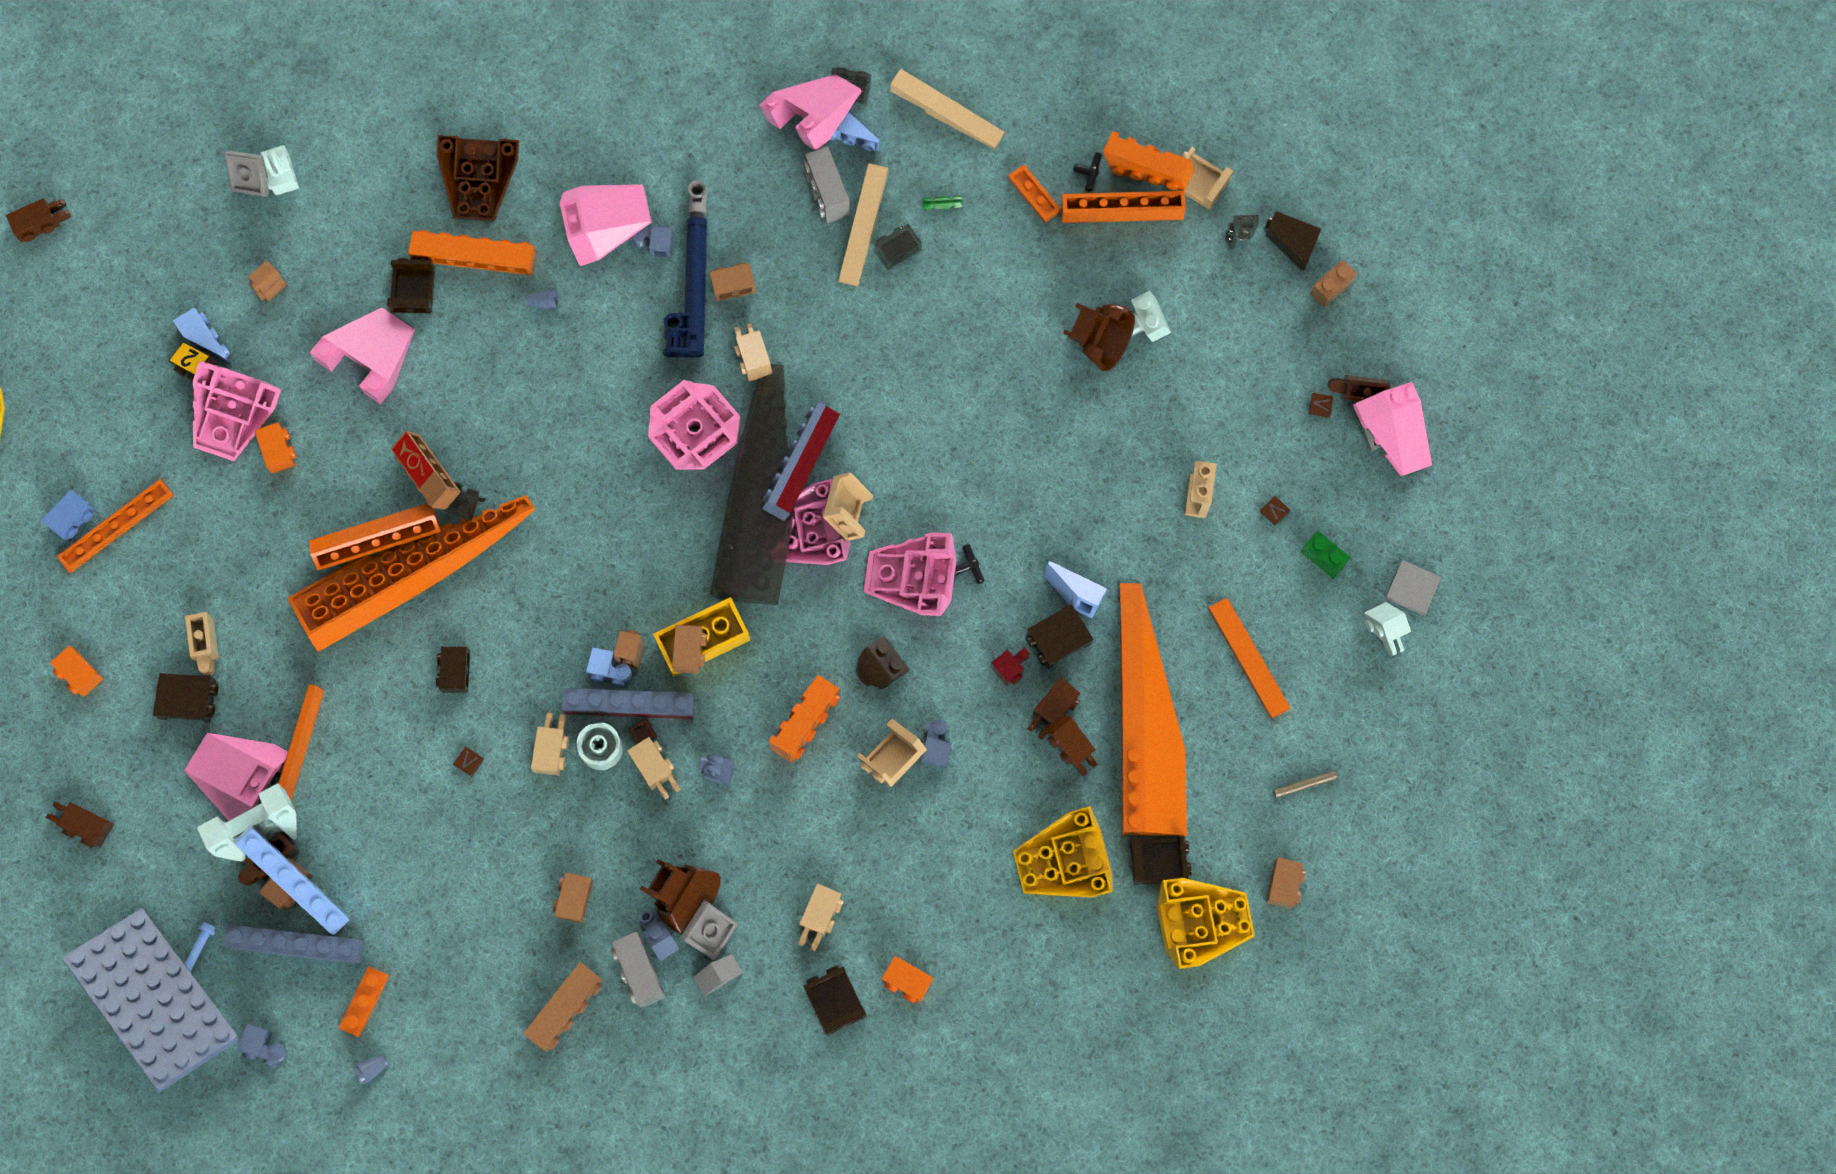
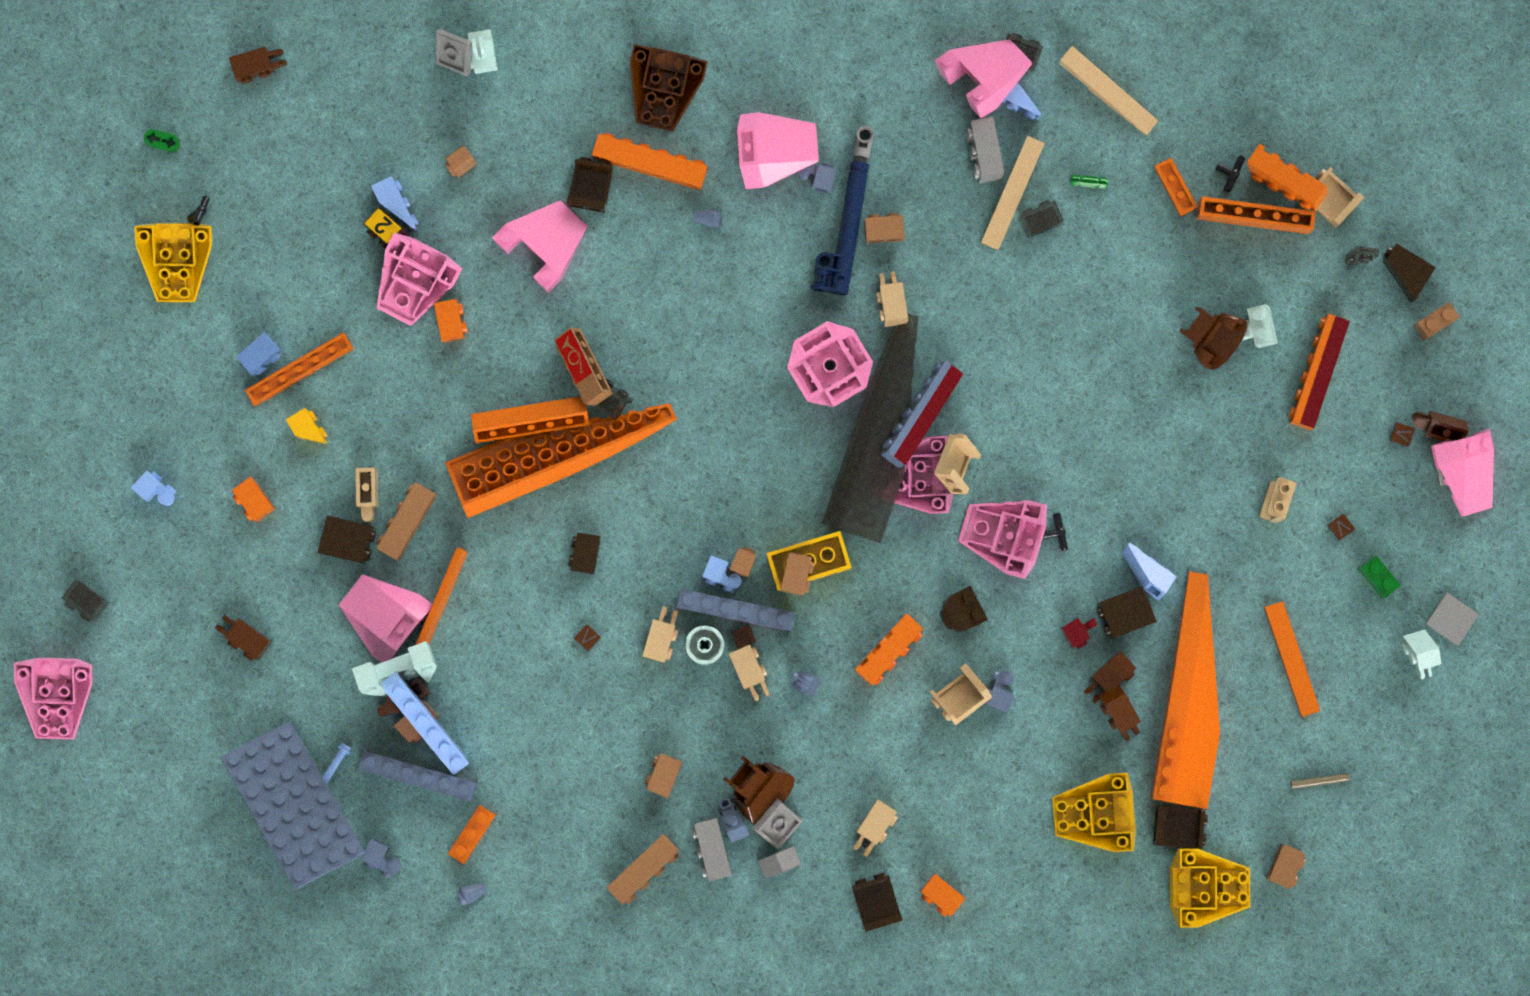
camera: 10 degrees right, 10 degrees up
(127, 585) = (305, 427): none -> yellow slope
(250, 666) = (407, 521): none -> medium nougat brick
(1220, 354) = (1319, 371): none -> brick

